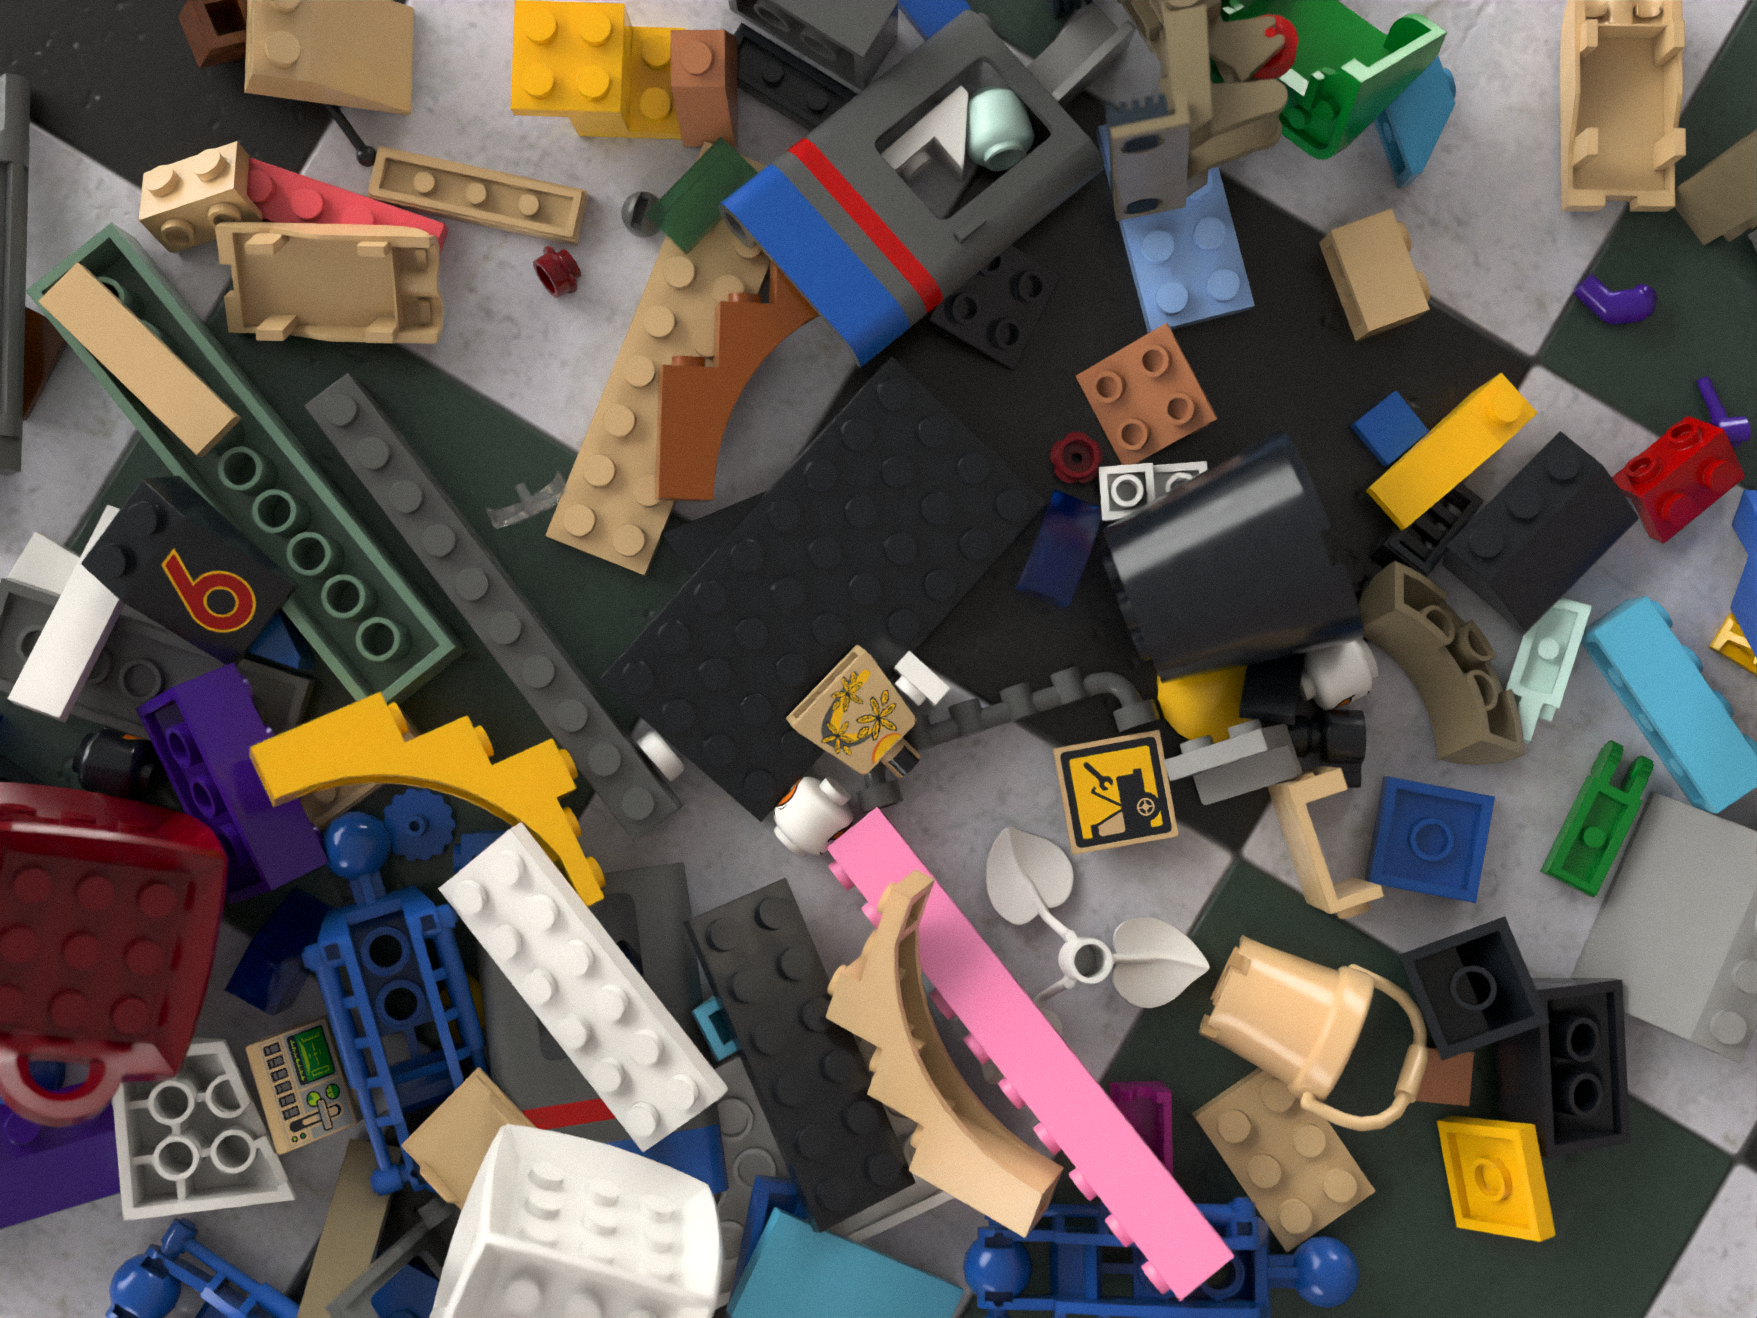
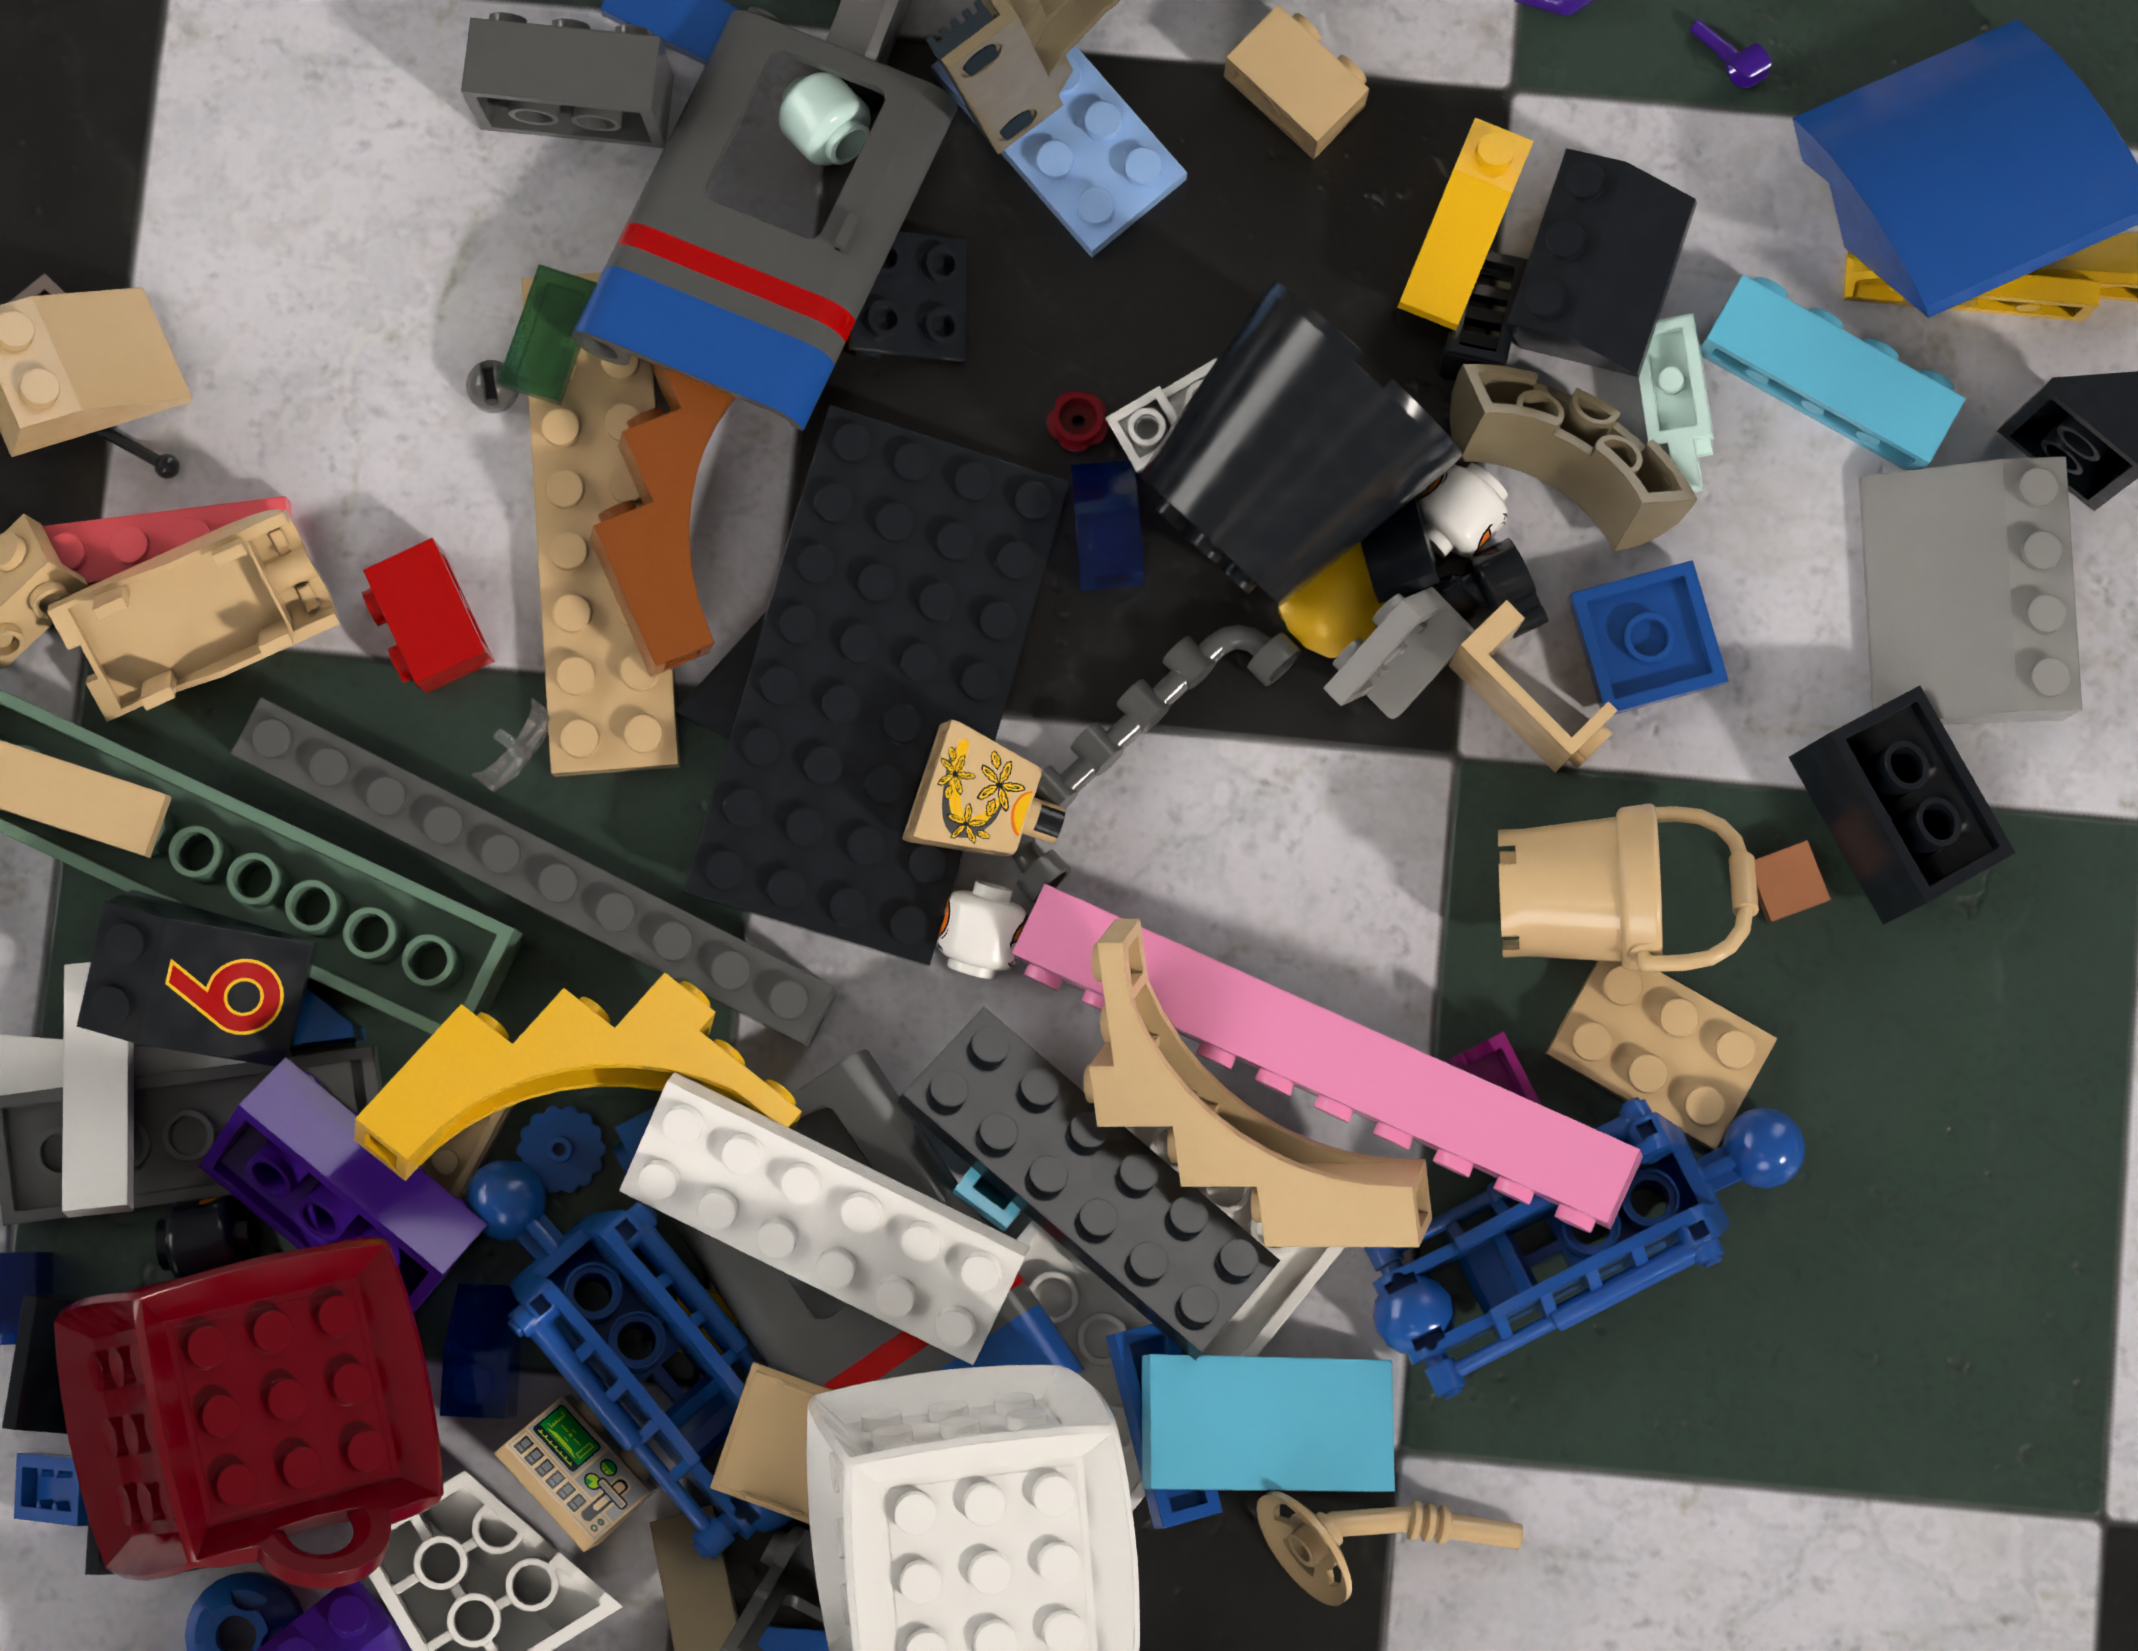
camera: 20 degrees left, 5 degrees down
(478, 195) = (306, 450): tan tile -> none
(507, 369) = (426, 616): none -> red brick
(557, 271) = (430, 489): dark red plate -> none
(593, 69) = (376, 257): yellow bracket -> none
(661, 755) = (788, 945): white tile -> none
(705, 85) = (496, 220): nougat slope -> none
(786, 80) = (571, 176): black tile -> none
(919, 681) = (1025, 728): white plate -> none
(937, 132) = (765, 152): white slope -> none
(1115, 792) = (1291, 749): piece -> none
(1146, 396) = (1119, 320): nougat hinge -> none
(1151, 956) = (1415, 906): white plant -> none
(1389, 428) = (1392, 232): blue tile -> none
(1474, 988) = (1764, 767): black slope -> none
(1496, 1177) = (1890, 955): yellow plate -> none
(1597, 822) = (1815, 538): green hinge -> none
(1679, 476) = (1720, 137): red bracket -> none

